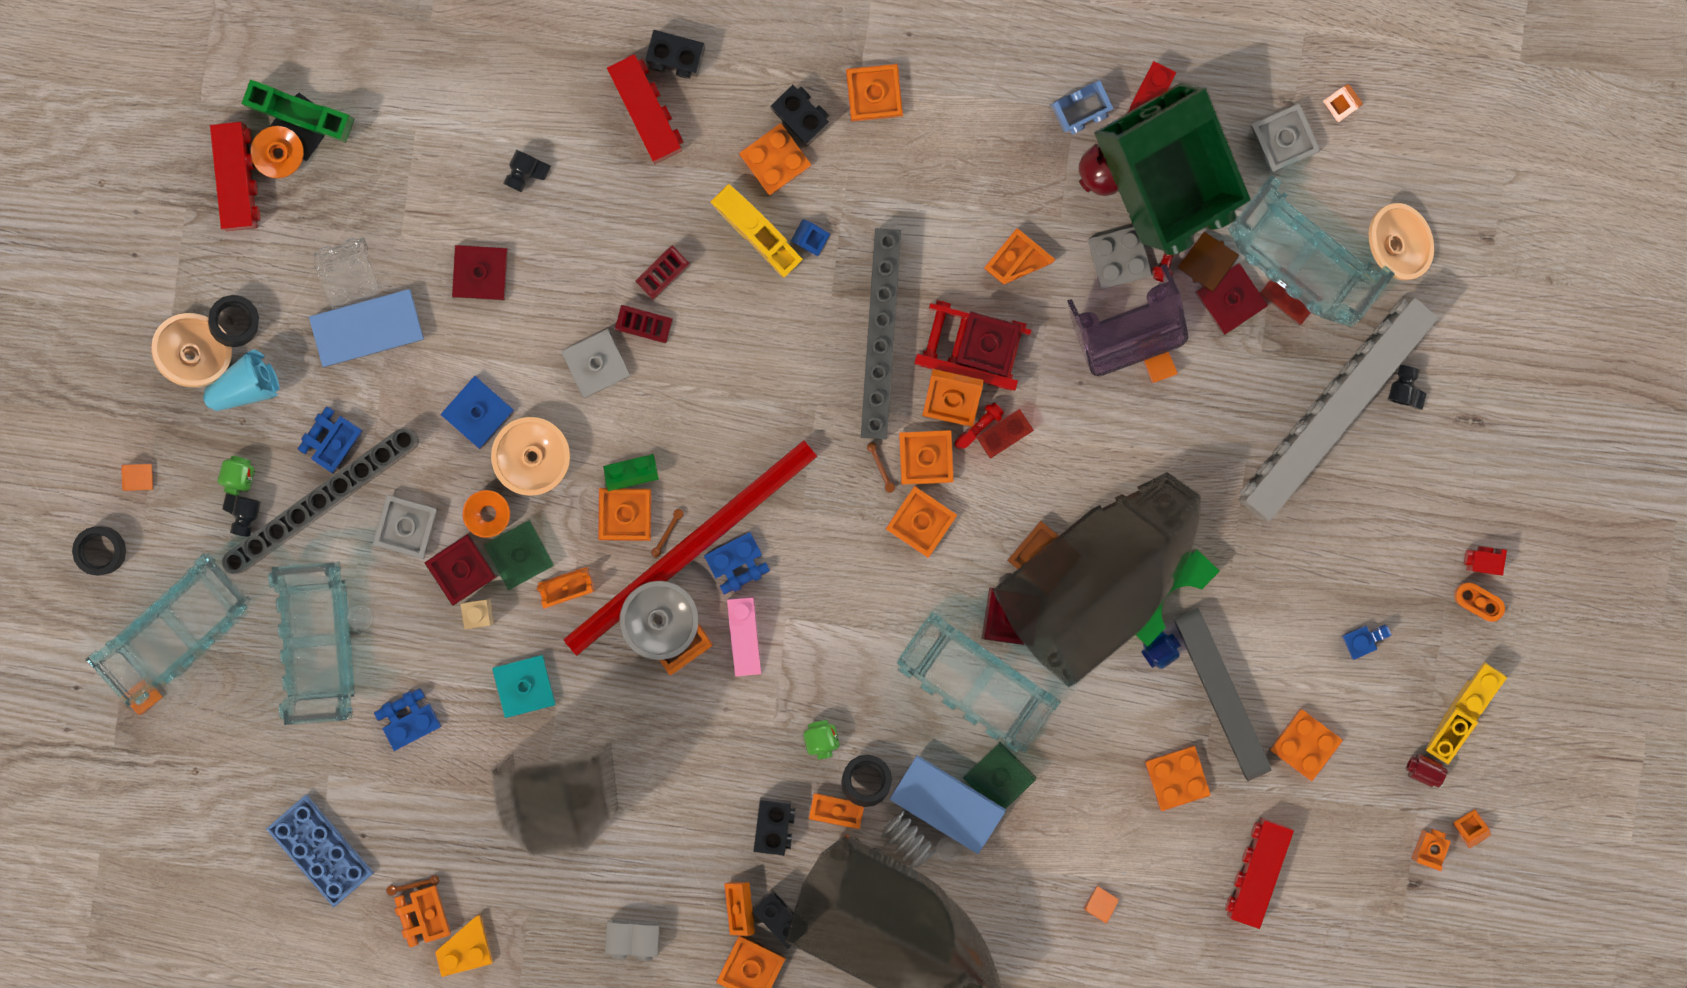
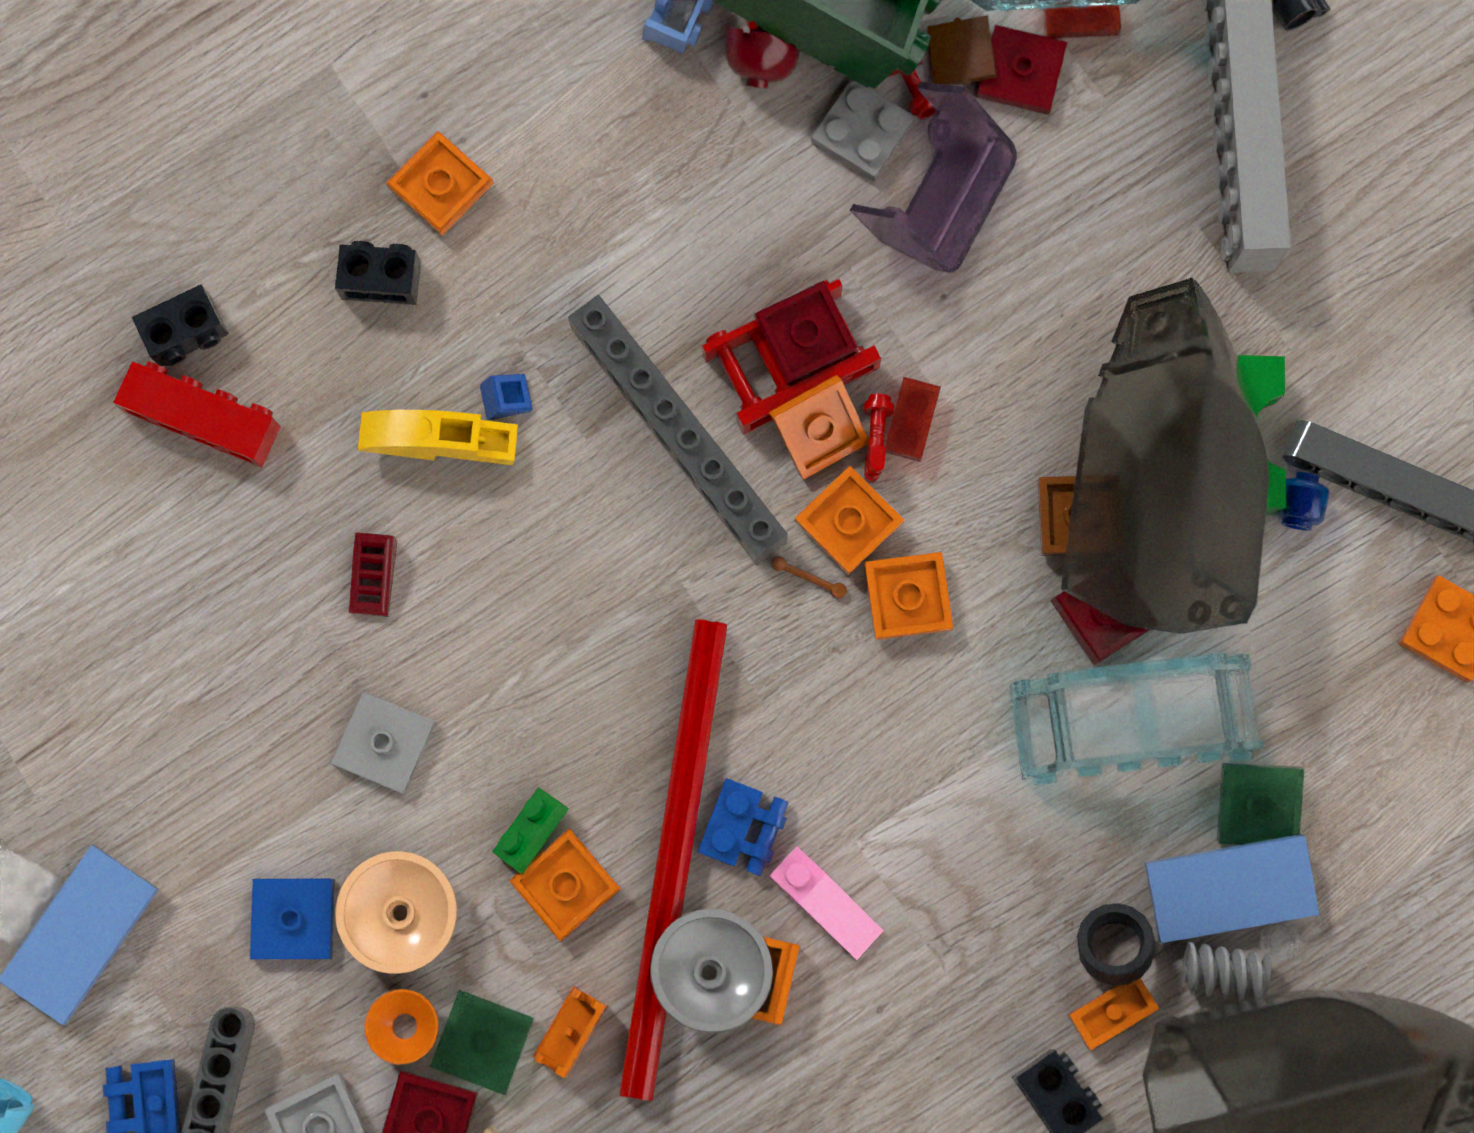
camera: 40 degrees left, 10 degrees down
(479, 272) = (161, 756): dark red plate -> none
(525, 166) = (111, 592): black piece -> none
(641, 333) = (394, 638): dark red slope -> none
(656, 551) = (627, 831): dark orange hinge -> none
(775, 159) = (392, 346): orange plate -> none
(821, 739) = (1021, 943): bright green head -> none
(1017, 258) = (754, 222): orange wing -> none
(1160, 367) = (1014, 204): orange slope -> none

